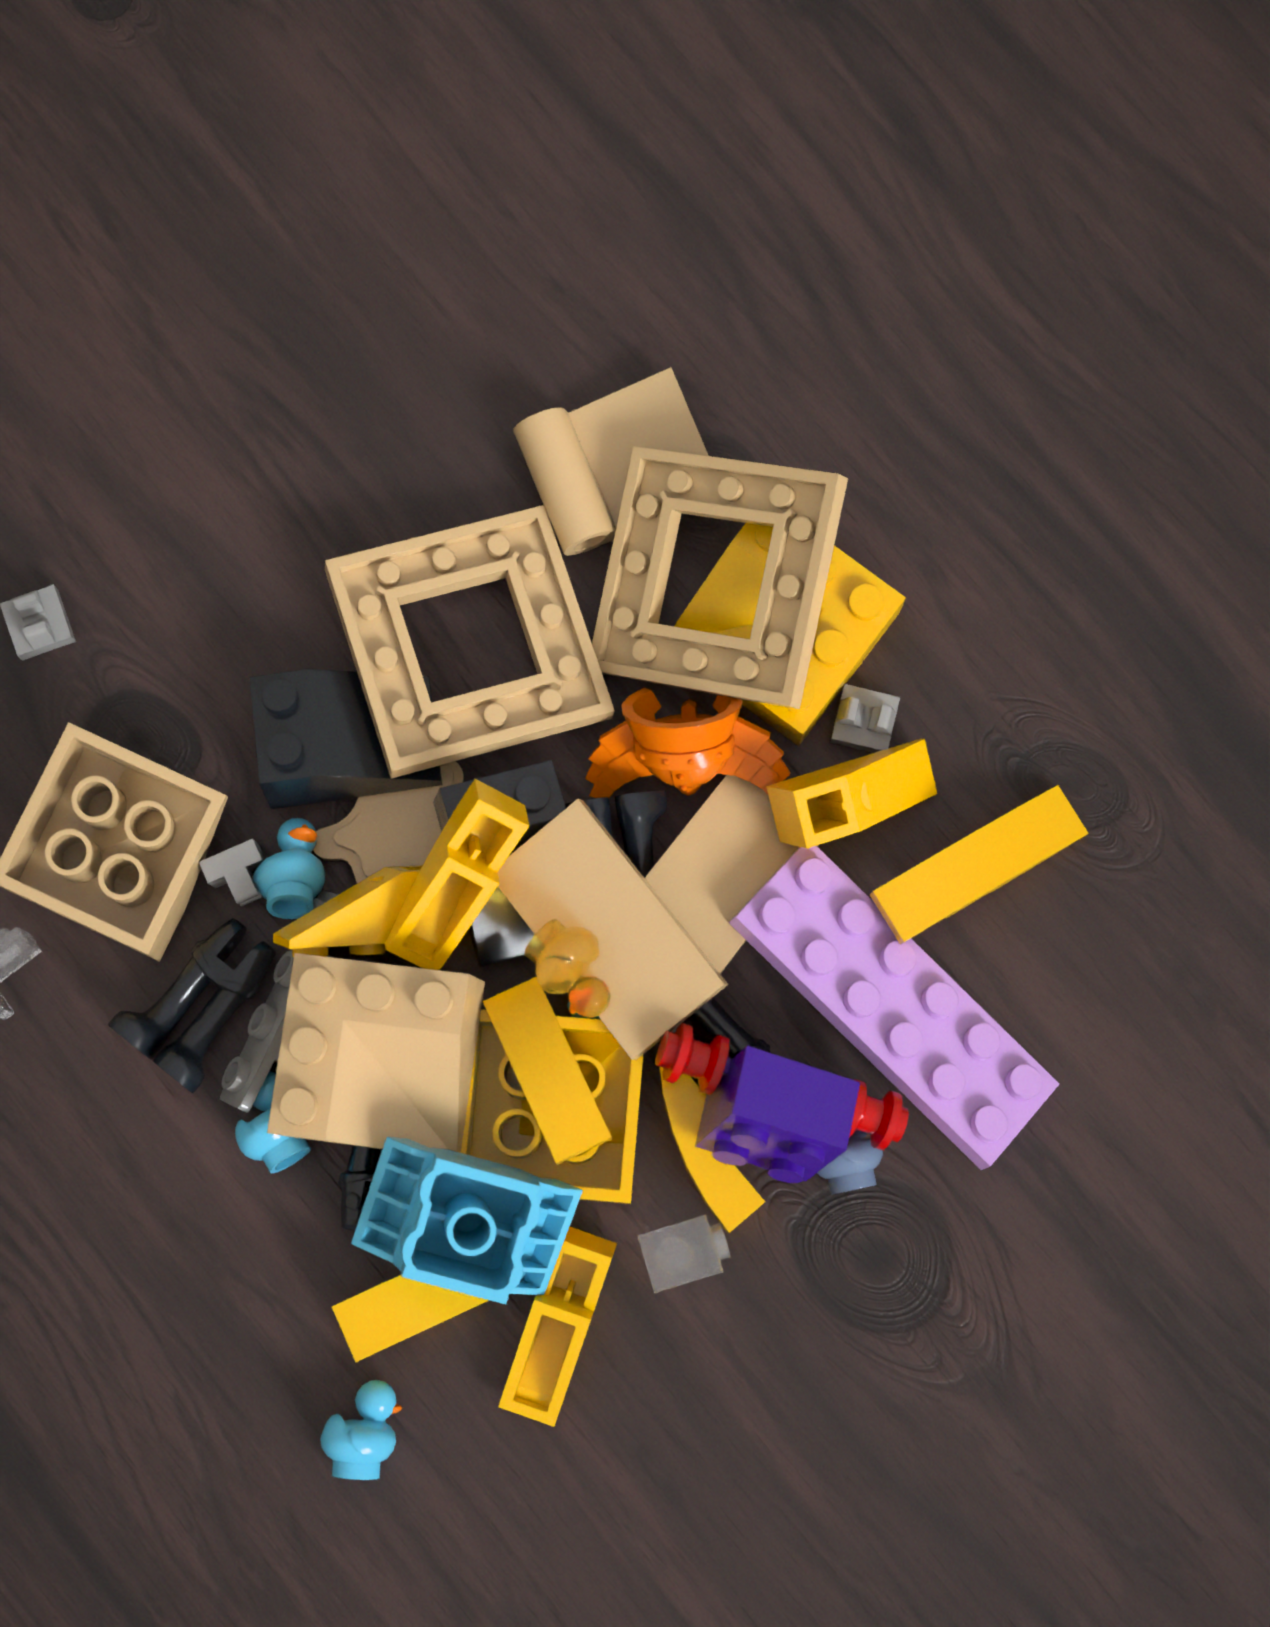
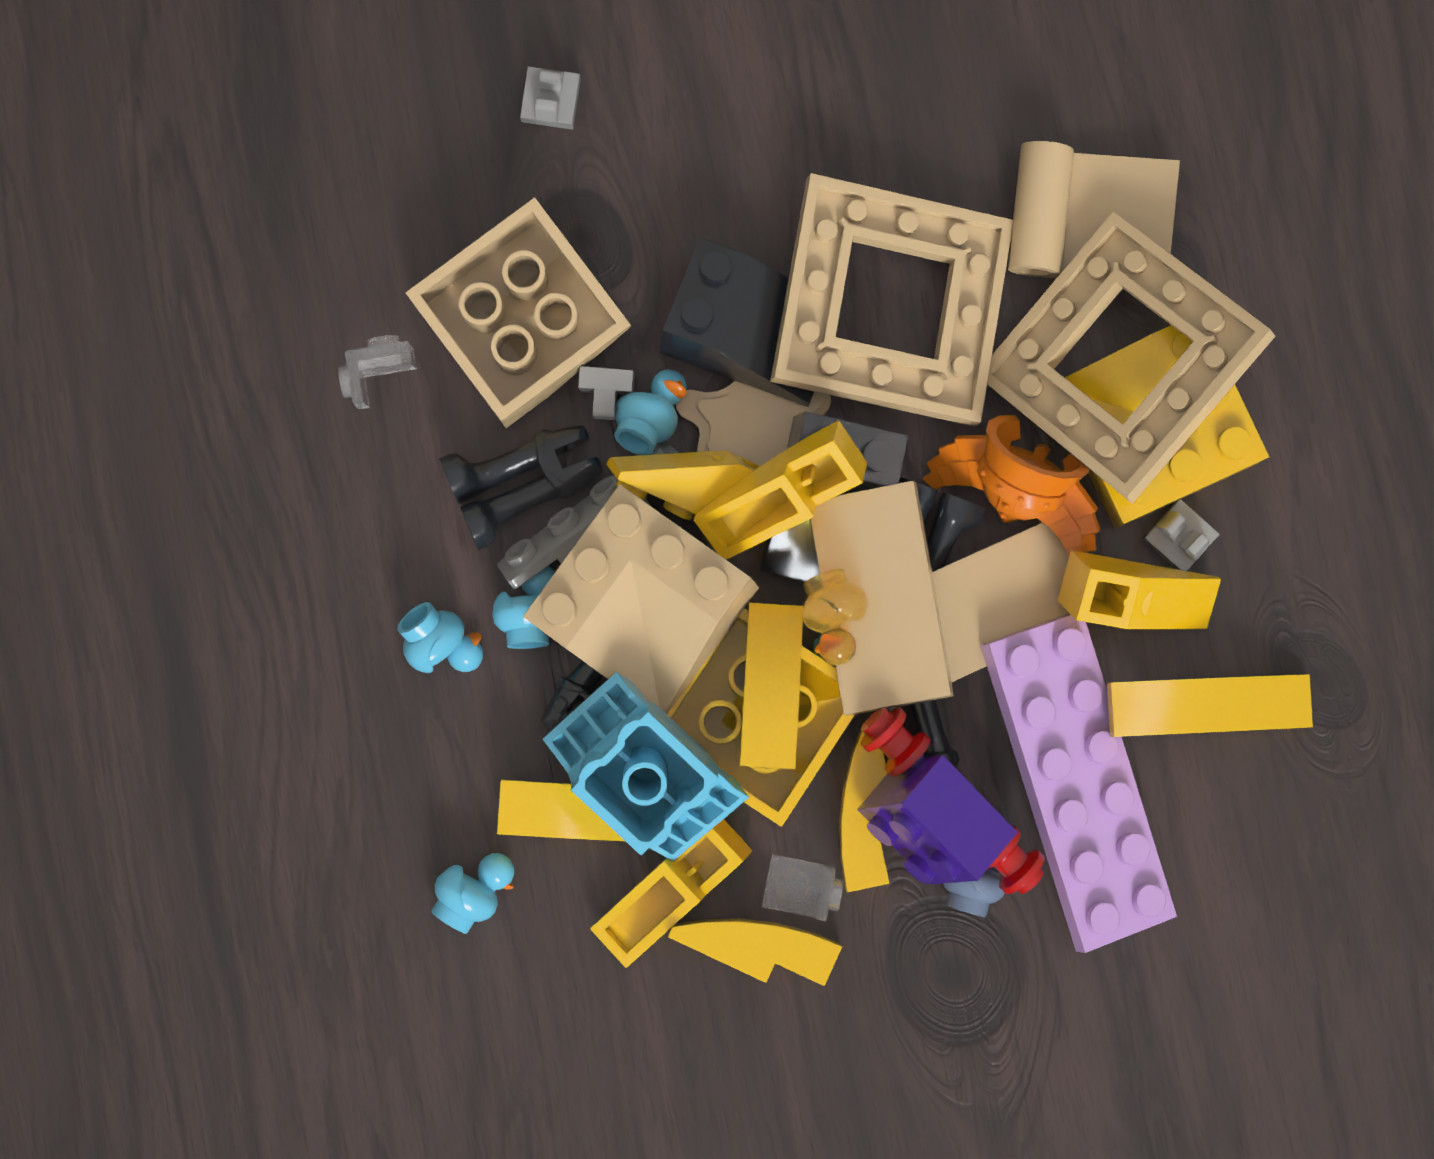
camera: 30 degrees right, 5 degrees up
(194, 1199) = (437, 635): none -> medium azure animal
(671, 1333) = (758, 945): none -> yellow slope

